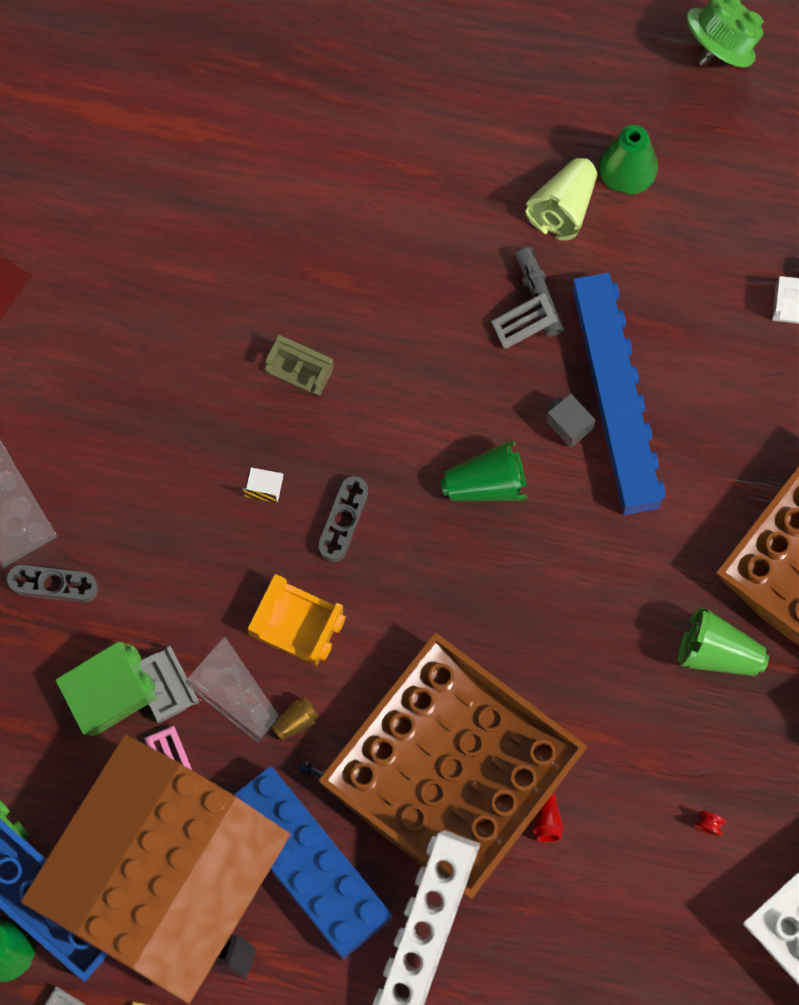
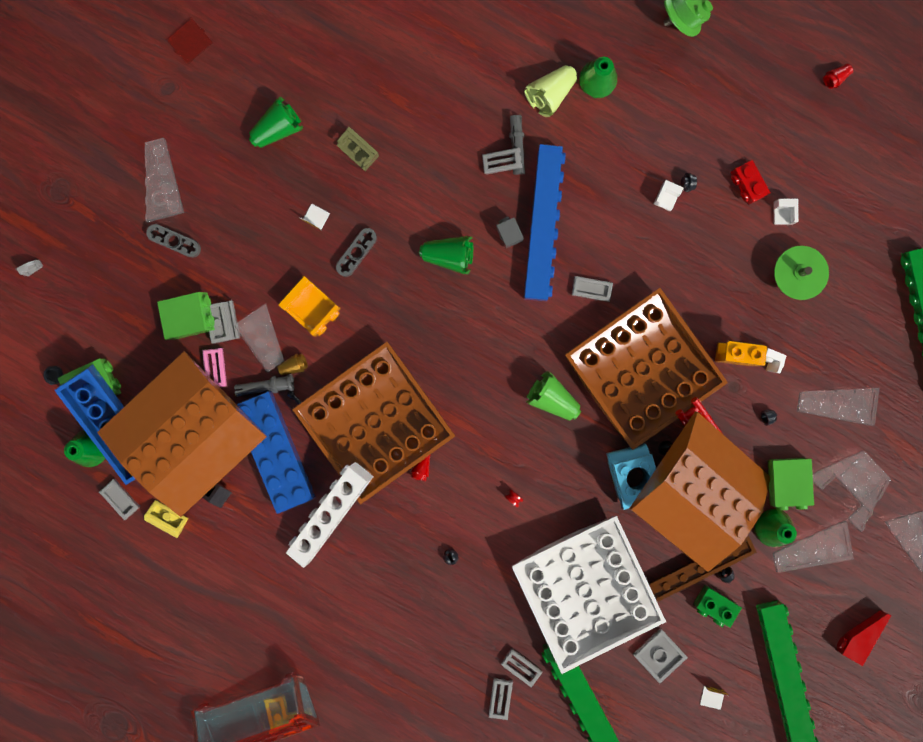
camera: 20 degrees right, 15 degrees up
(163, 365) = (275, 124): none -> green cone
(275, 756) = (274, 384): none -> dark grey pin
(635, 955) = (454, 554): none -> black hinge
(723, 469) = (592, 289): none -> light grey tile

